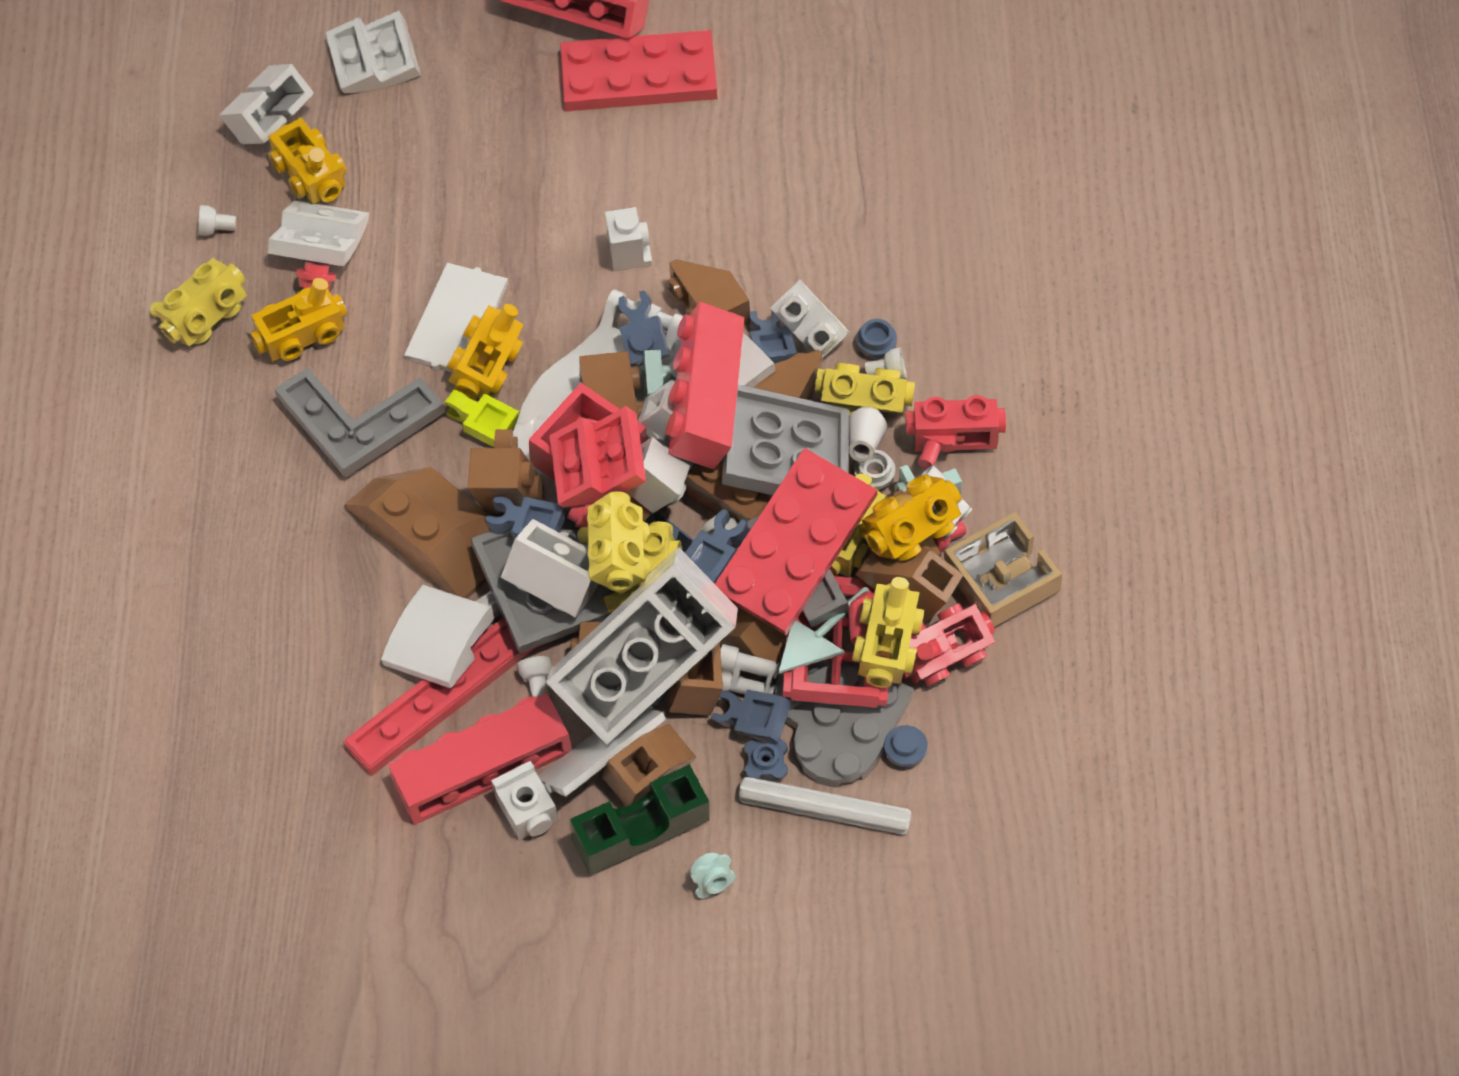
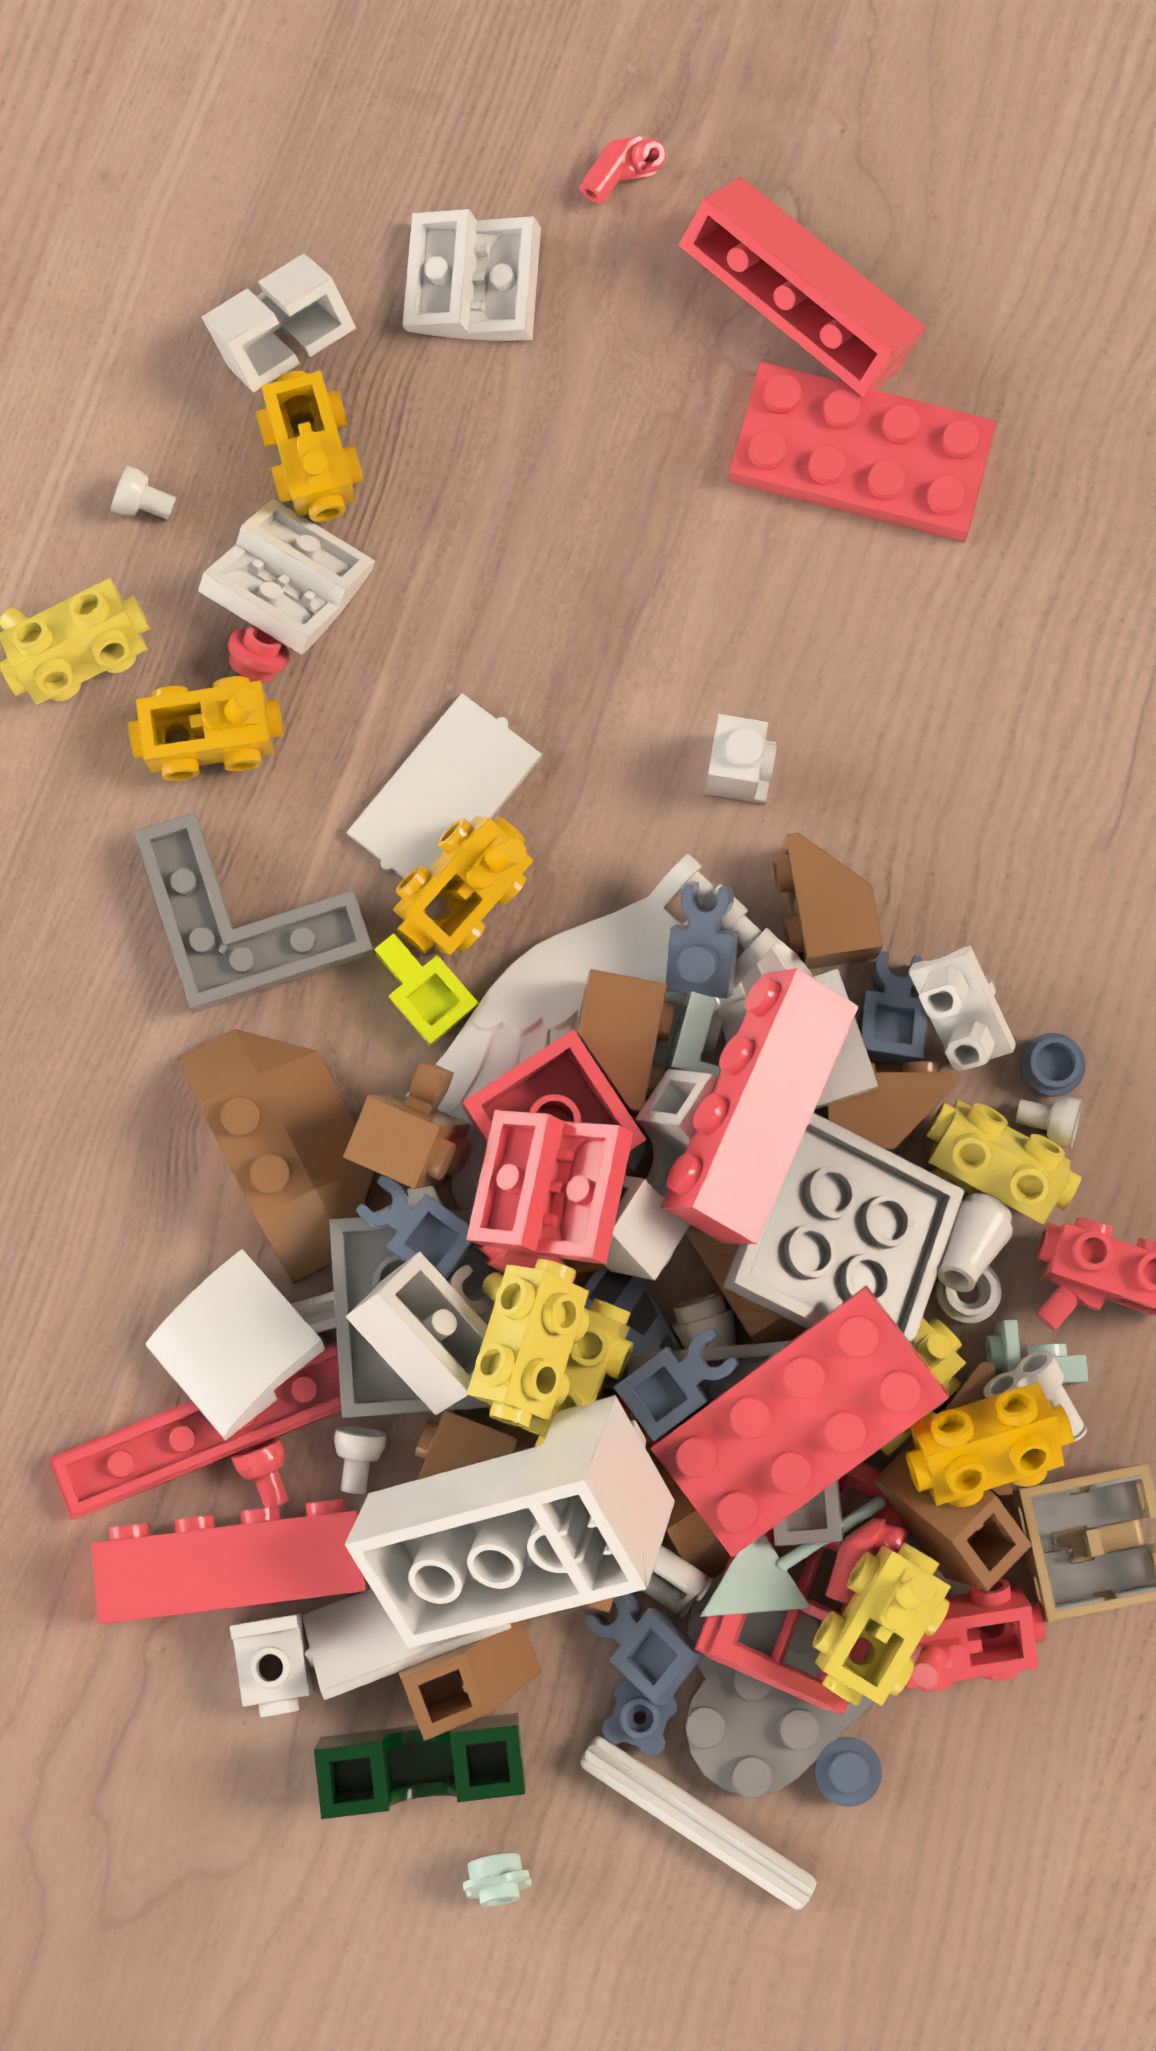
camera: 15 degrees right, 20 degrees up
(478, 700) = (262, 1466): none -> coral piece

